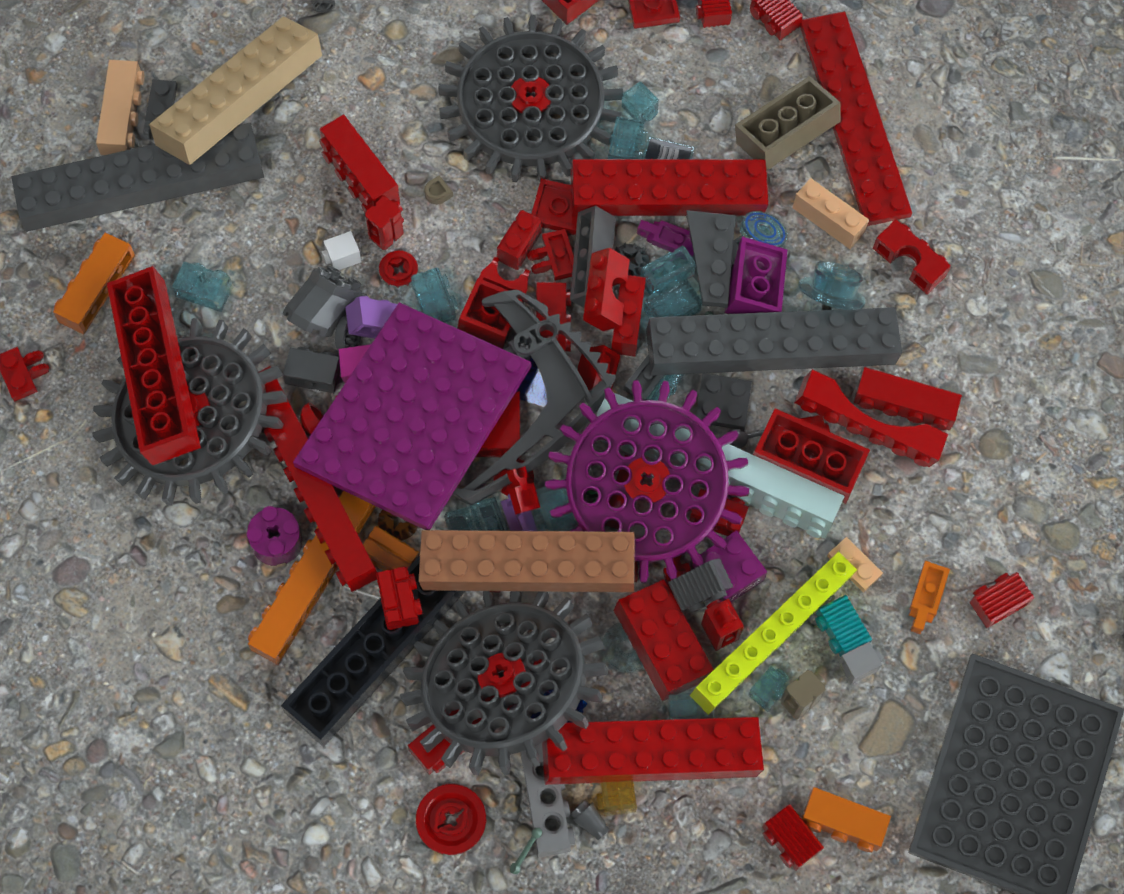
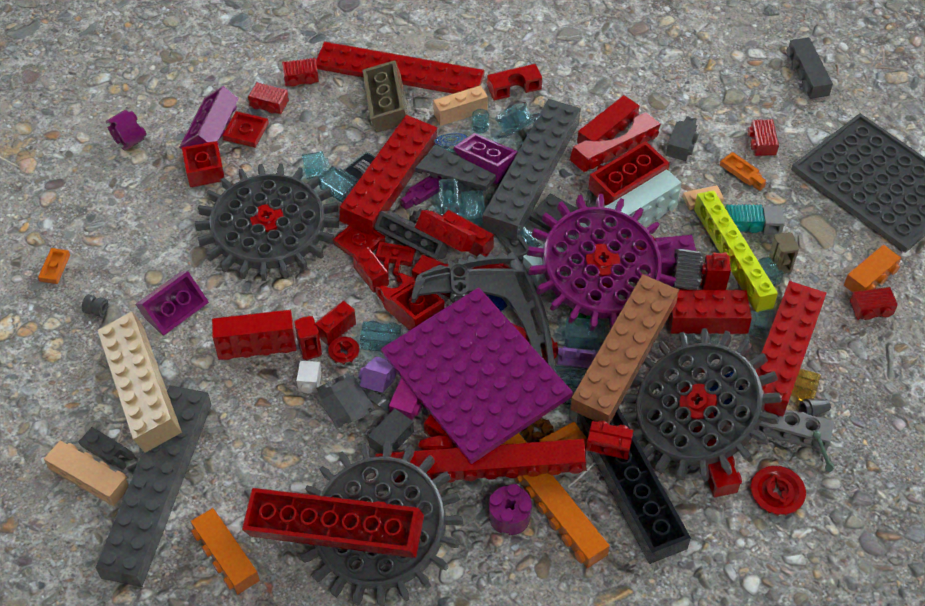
camera: 60 degrees left, 15 degrees down
(202, 286) = (279, 474): clear light blue brick -> none
(365, 66) = (172, 302): none -> magenta slope
(426, 241) = (336, 322): none -> red brick
(437, 191) = (298, 304): dark tan tile -> none
(523, 494) = (567, 339): red plate -> none
(821, 242) = (480, 121): none -> clear light blue wheel
(938, 499) = (682, 139): none -> dark grey hinge

